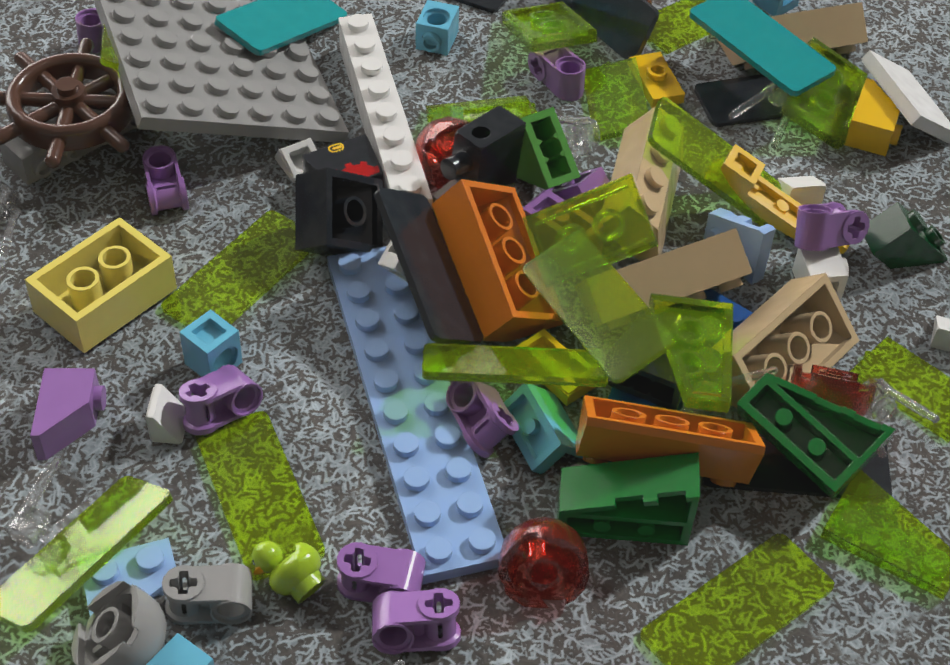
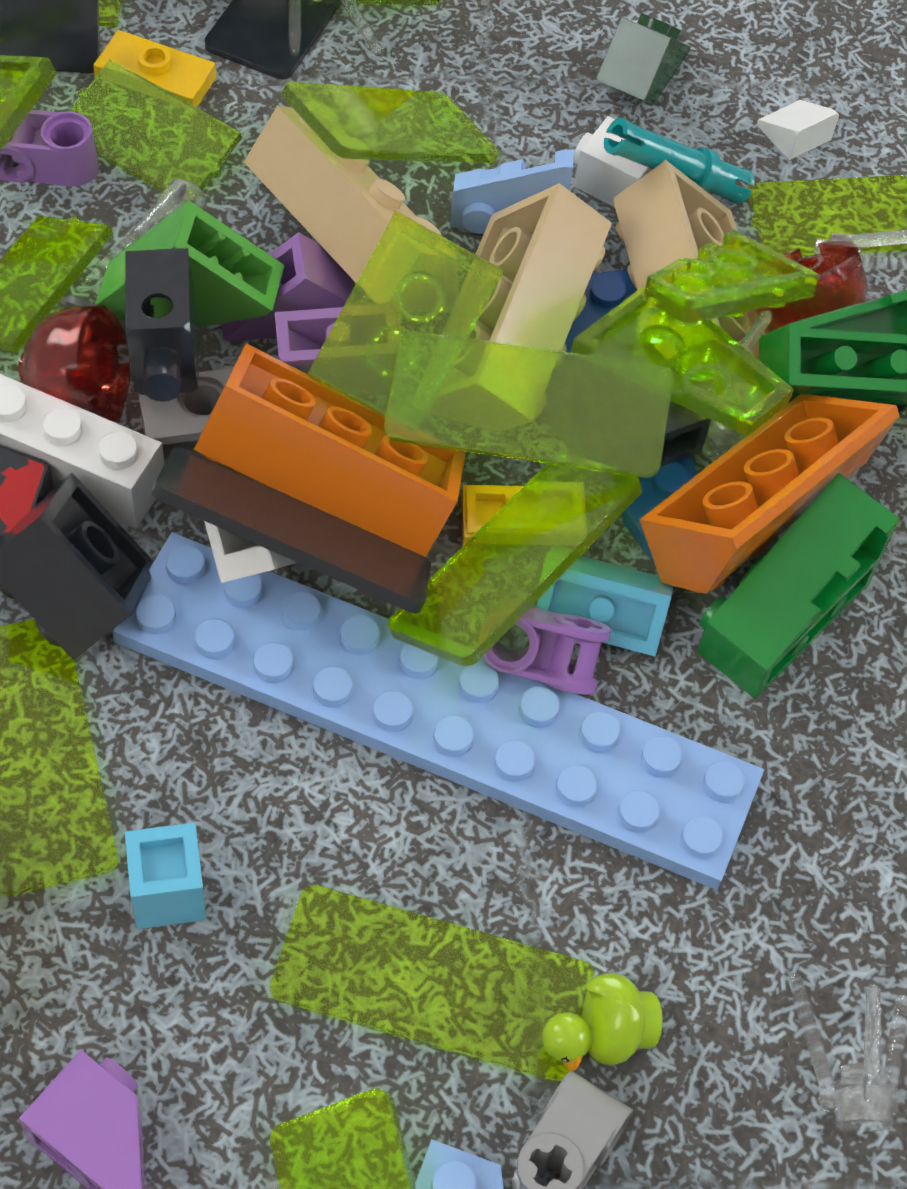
camera: 55 degrees left, 10 degrees up
(165, 416) = (220, 1014): white slope -> none
(220, 397) = (256, 928): medium lavender piece -> none
(379, 572) = (694, 920): medium lavender piece -> none
(411, 621) = (786, 933): medium lavender piece -> none
(543, 555) = (810, 726): clear red cylinder -> none
(761, 196) = (547, 118): yellow slope -> none
(788, 345) = (727, 281): none -> clear neon green wing
(804, 189) = (474, 81): white slope -> none
(829, 226) = (593, 101): medium lavender piece -> none
(850, 295) = (699, 165): none -> teal pin

